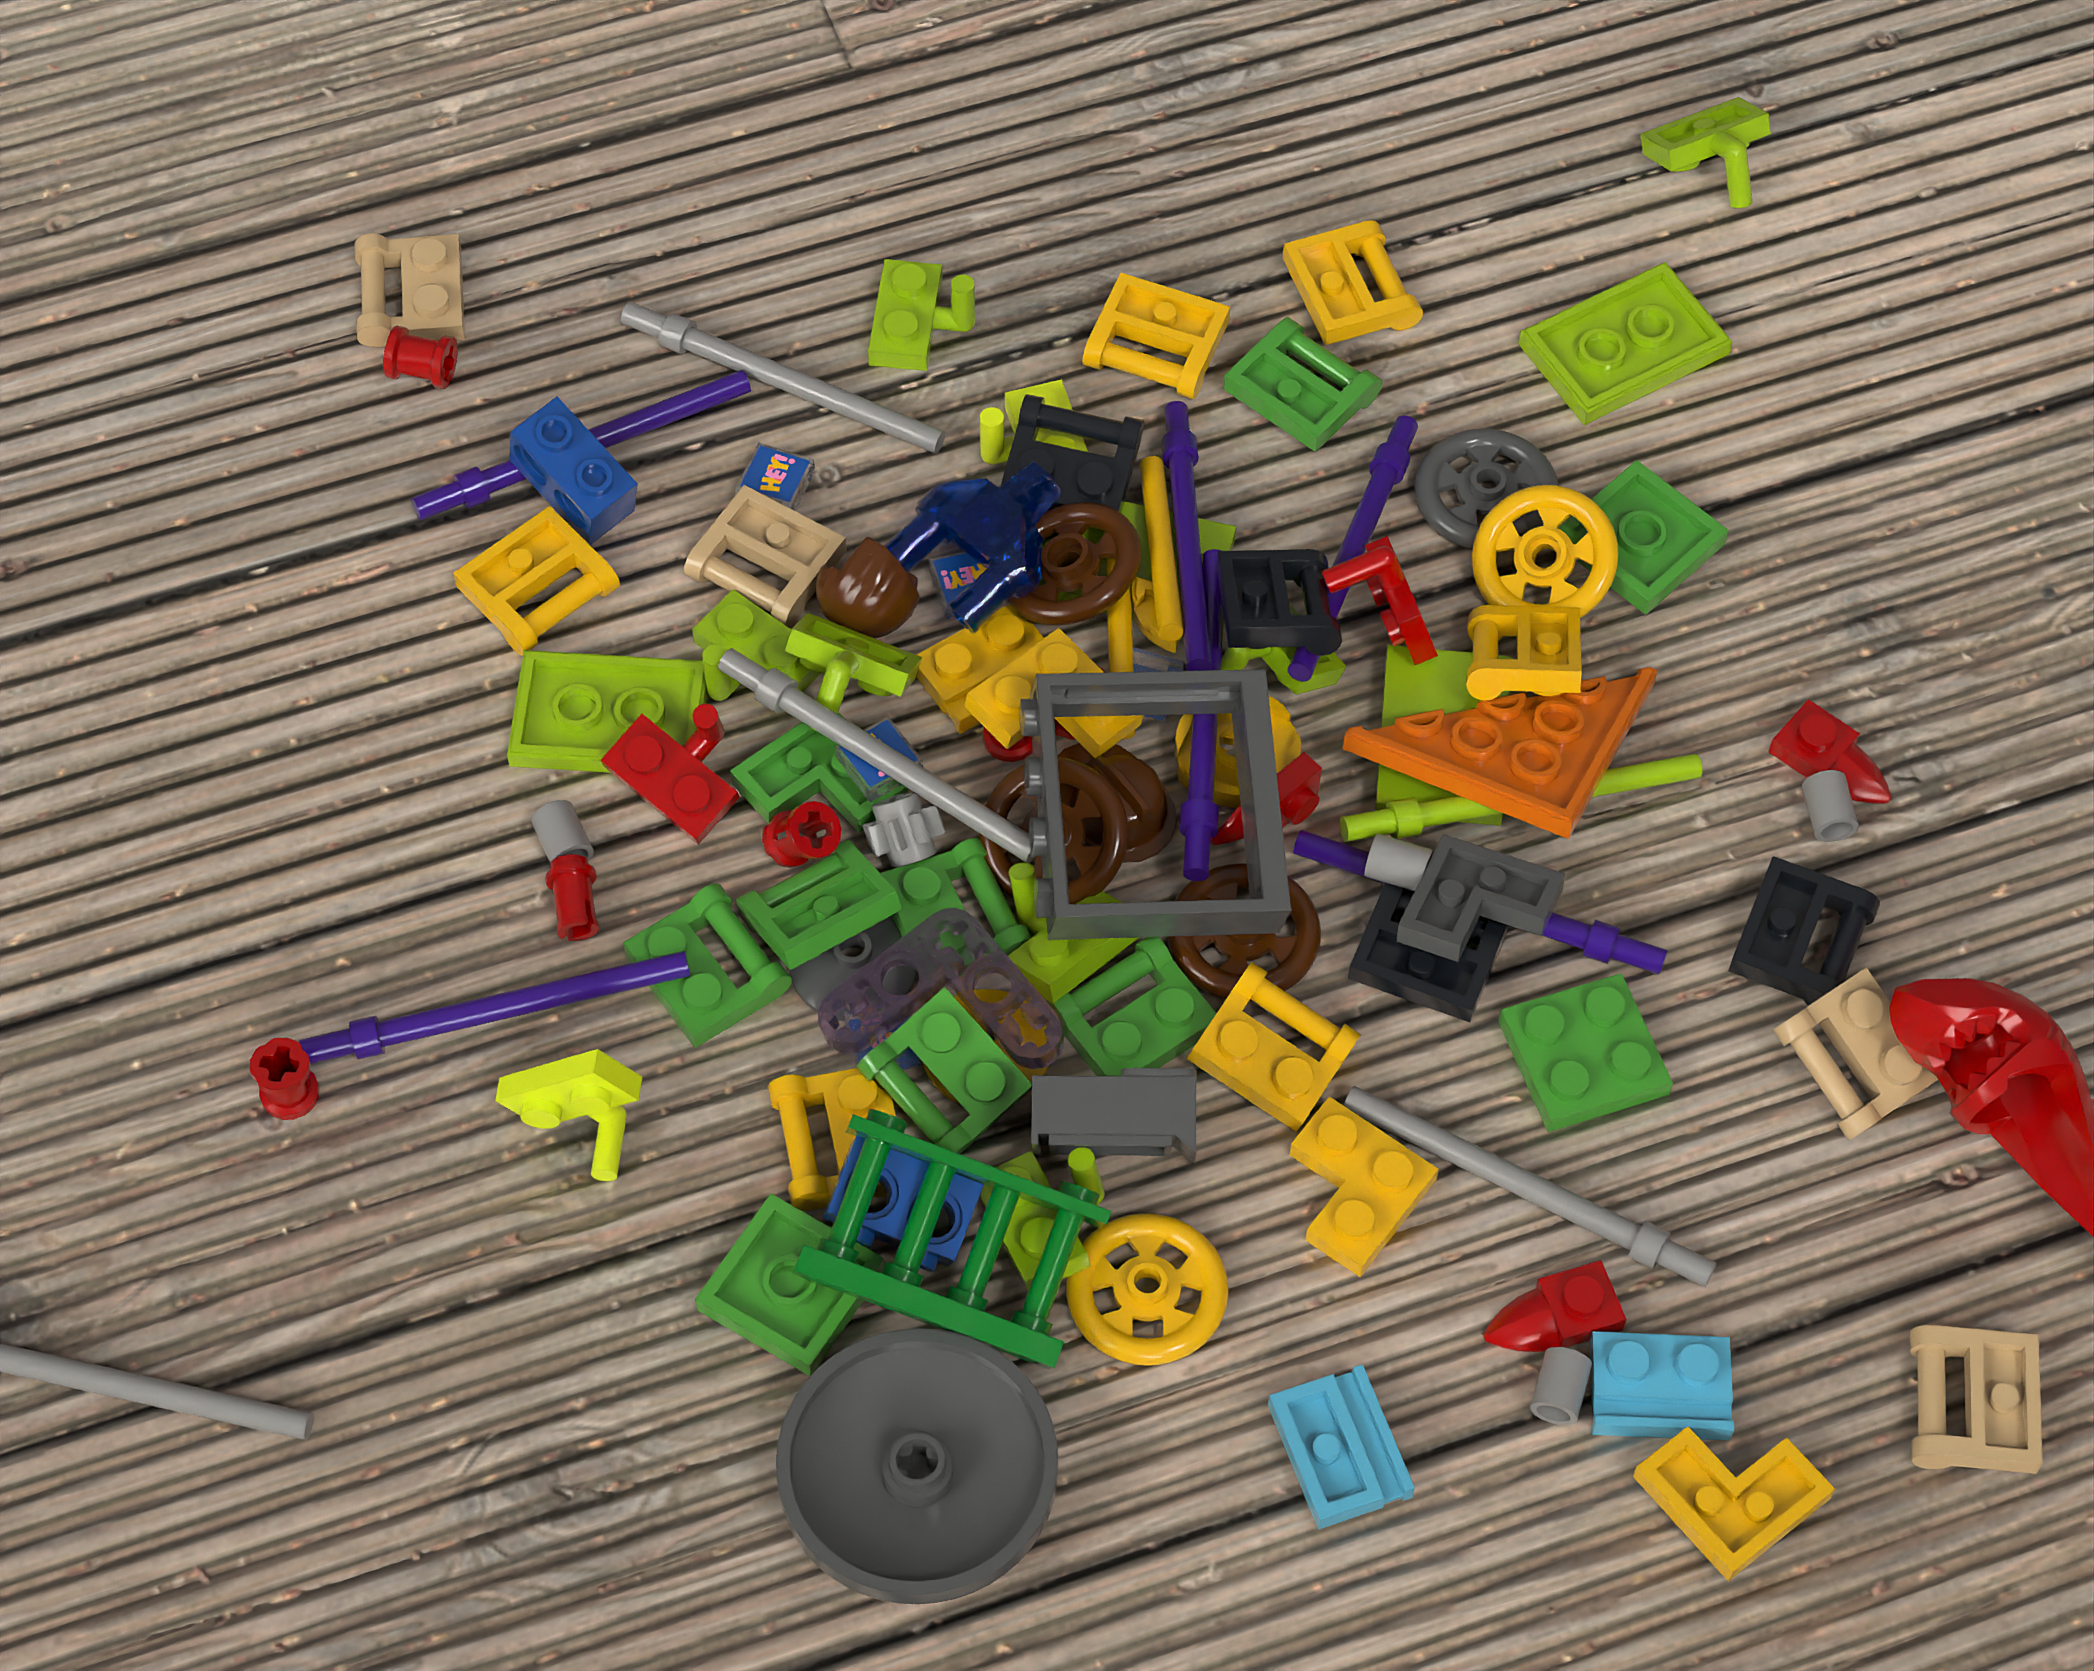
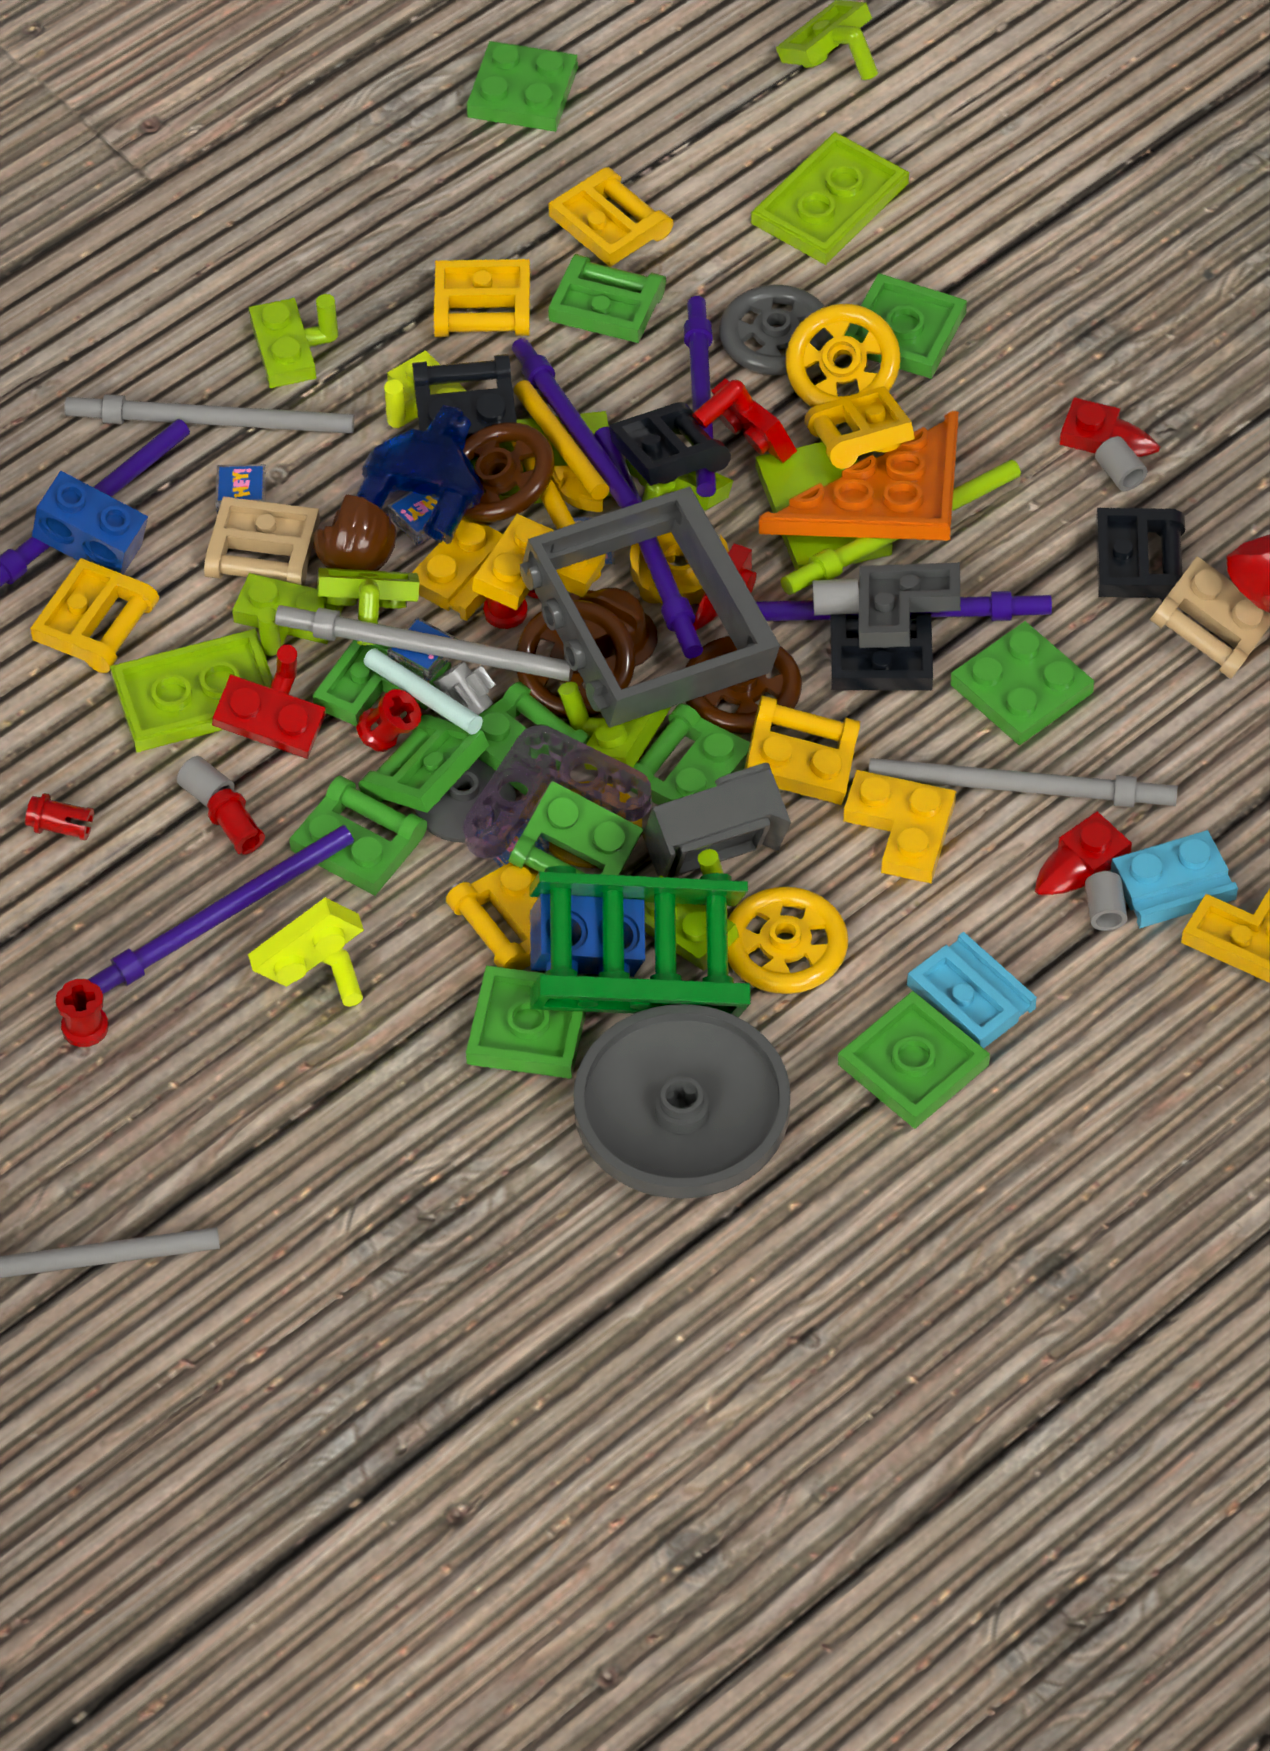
camera: 20 degrees left, 5 degrees down
(366, 811) = (56, 817): none -> red pin
(852, 815) = (423, 691): none -> light aqua bar
(1229, 1512) = (913, 1059): none -> bright green plate
(1324, 88) = (522, 86): none -> bright green plate

